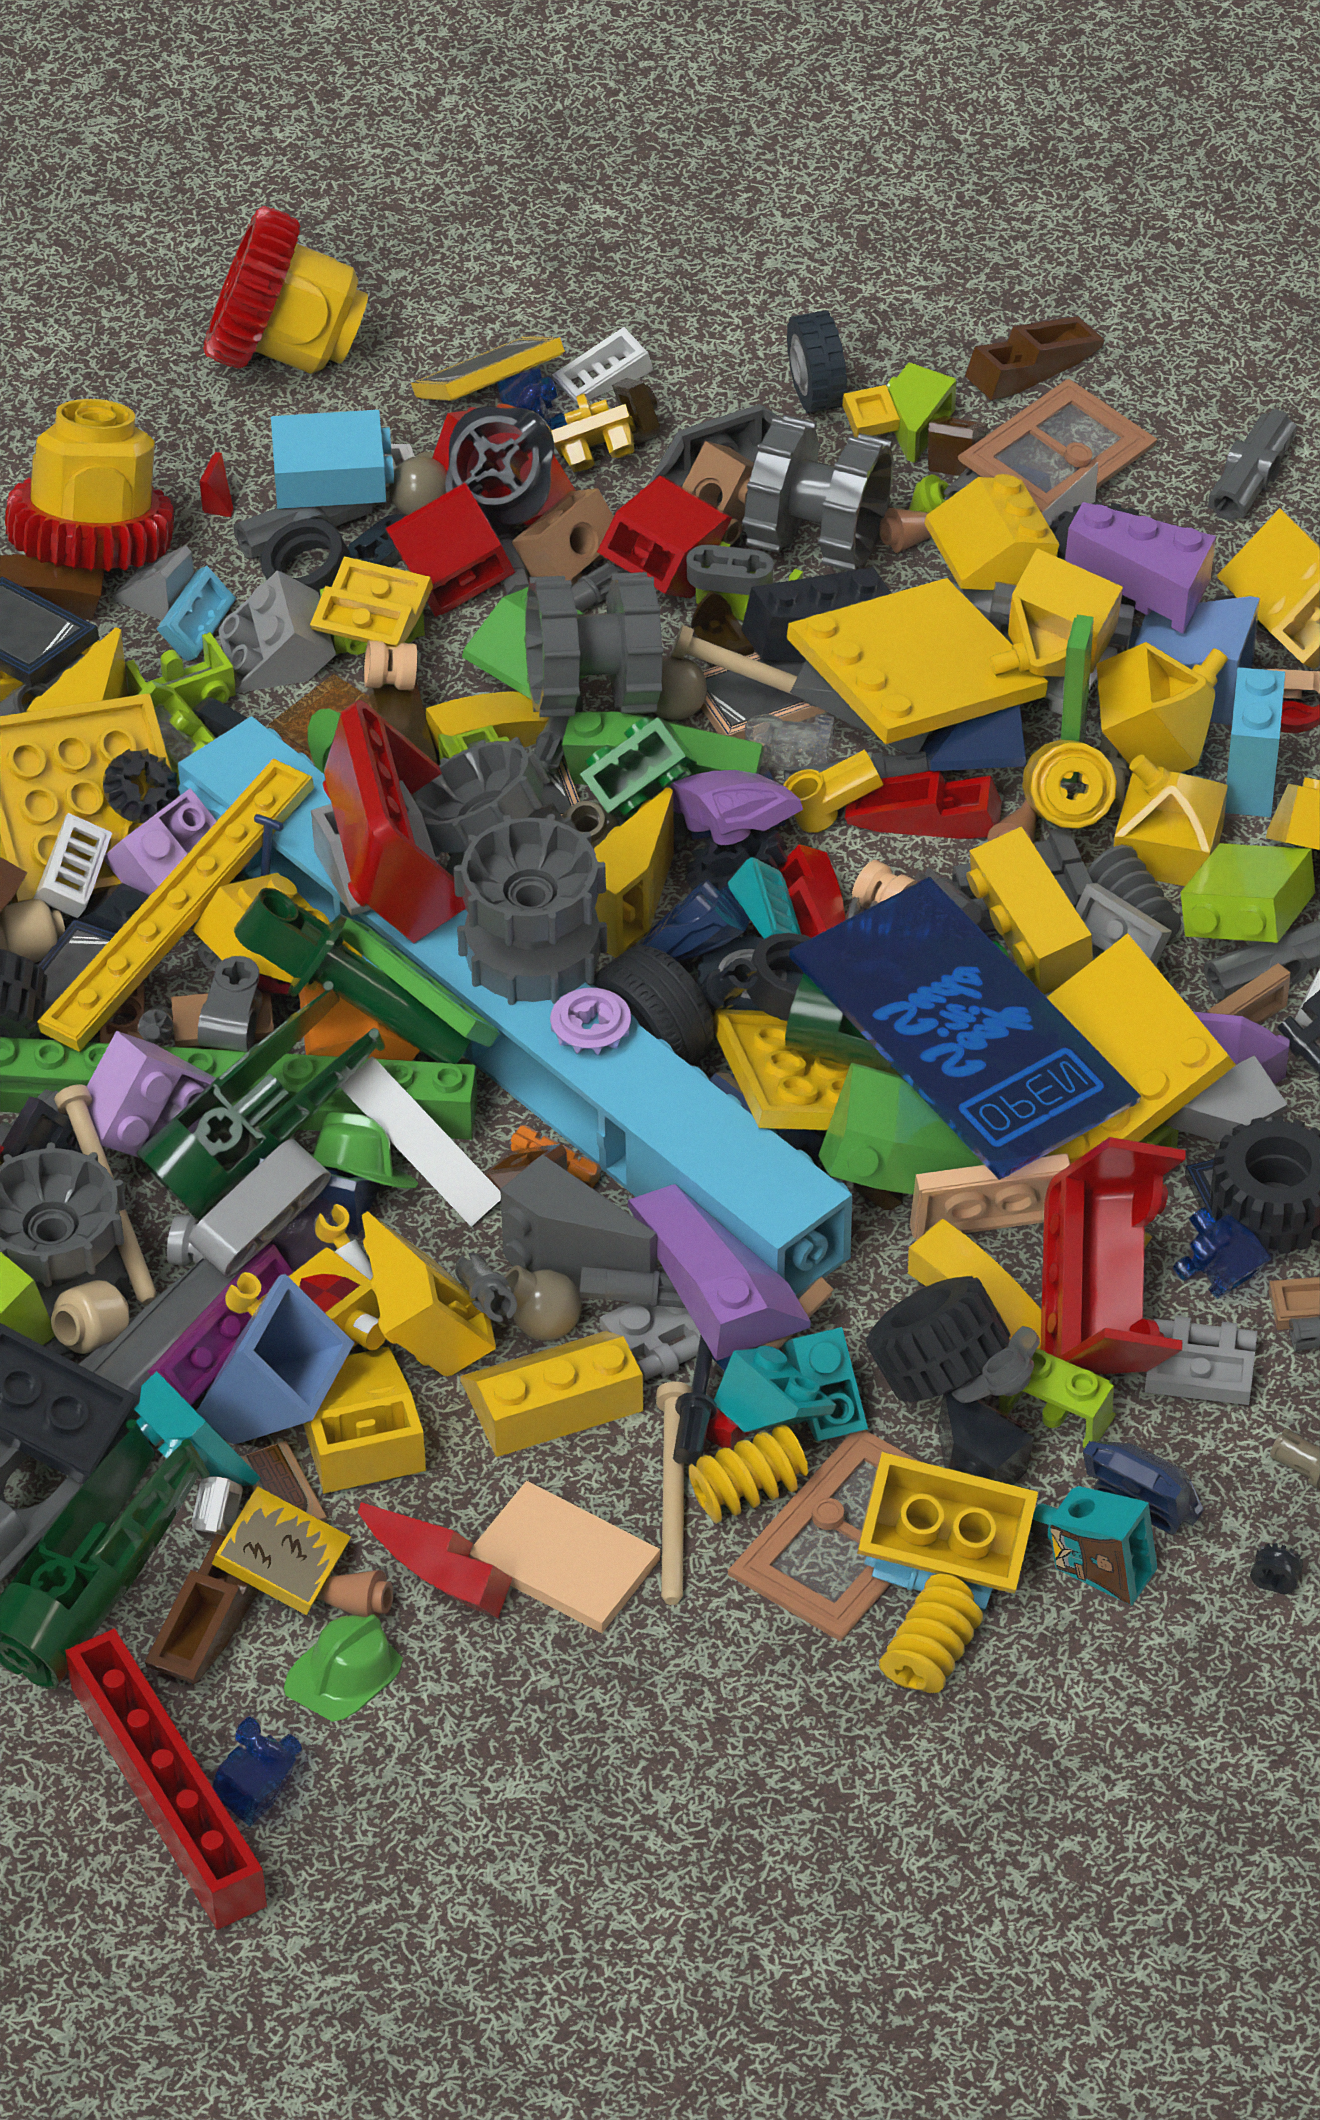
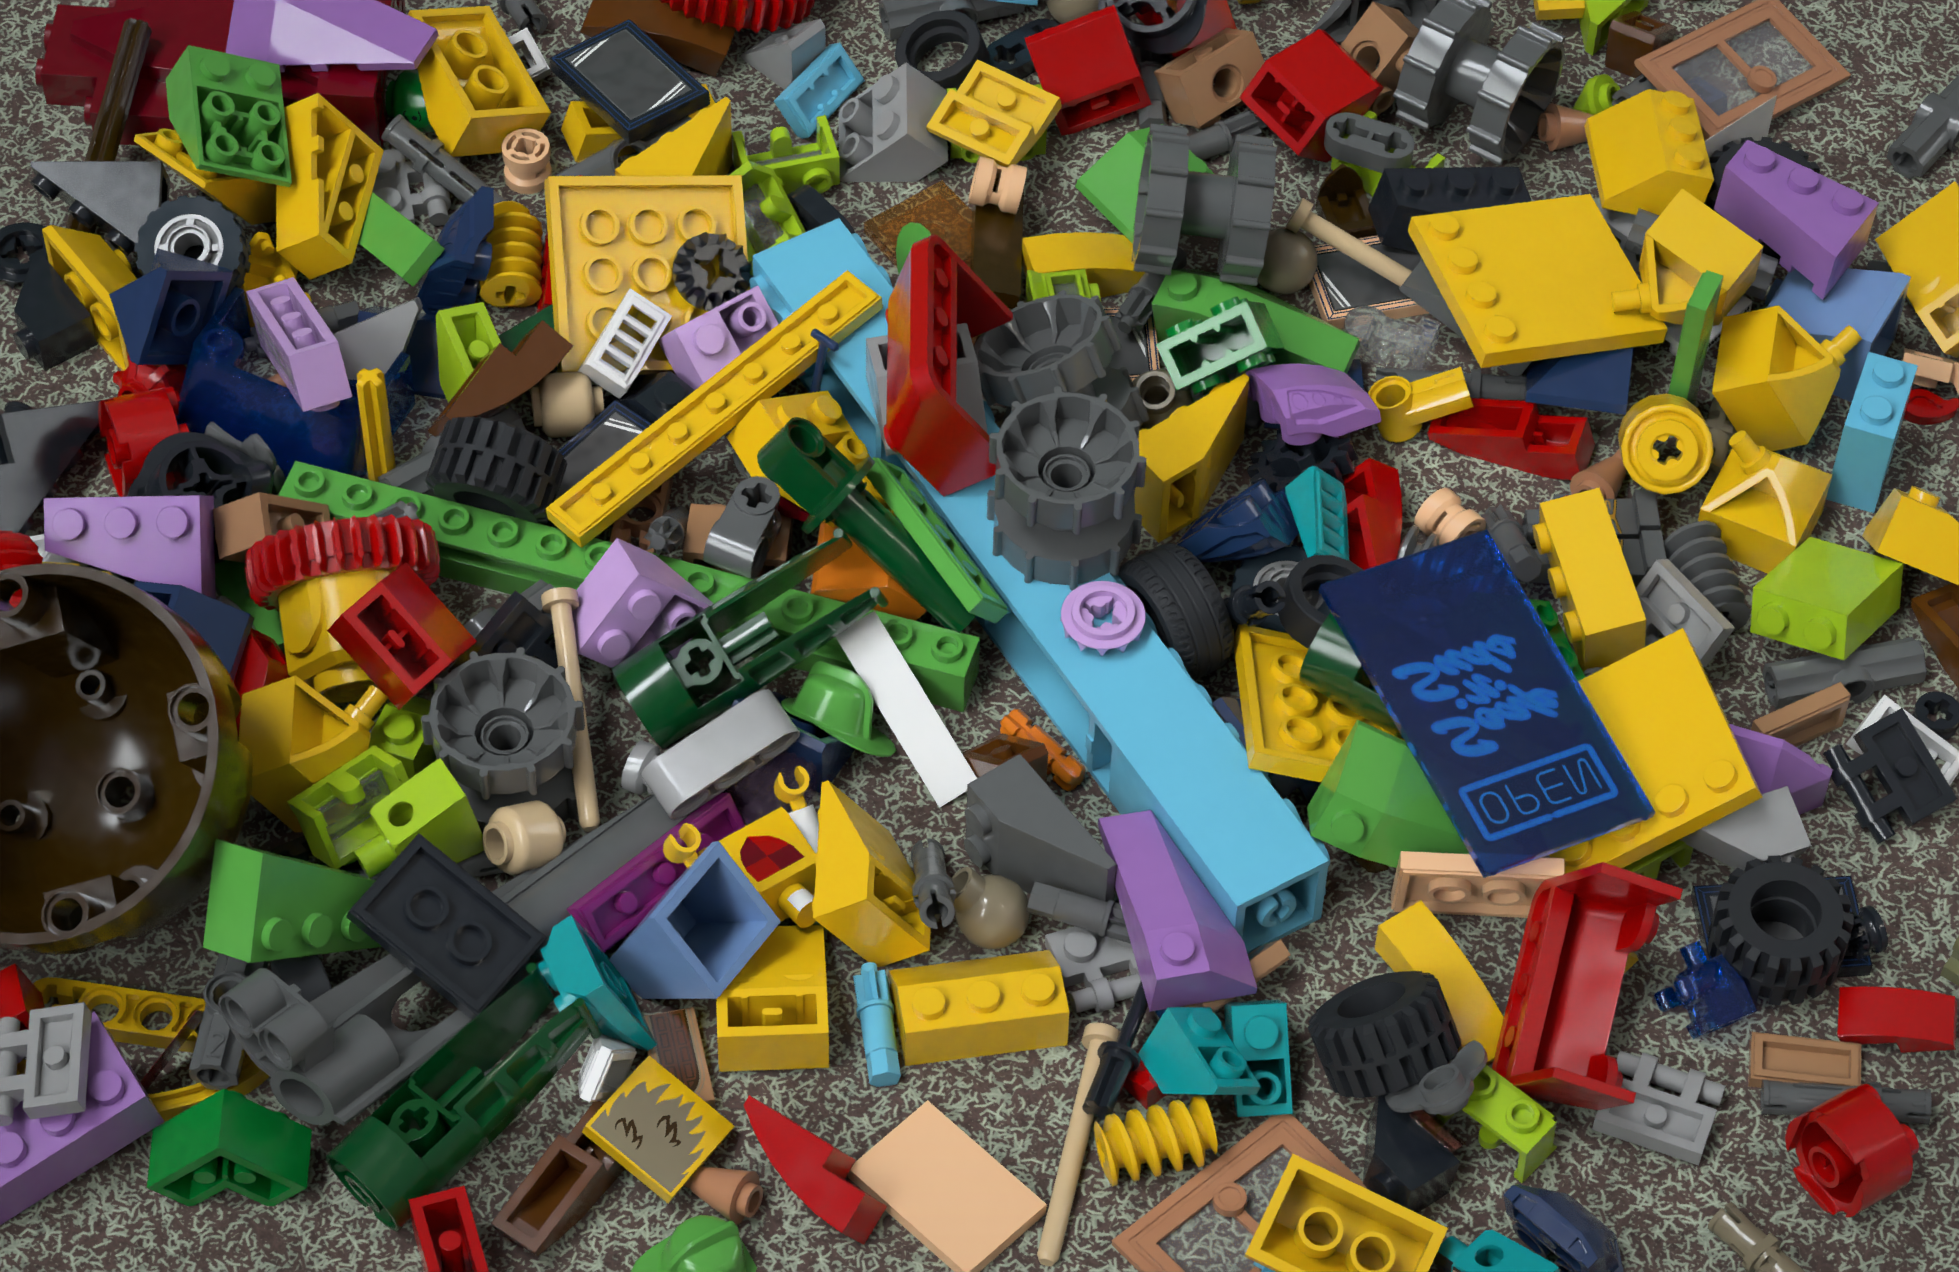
camera: 10 degrees right, 5 degrees up
(463, 1427) = (877, 1025): none -> medium azure piece

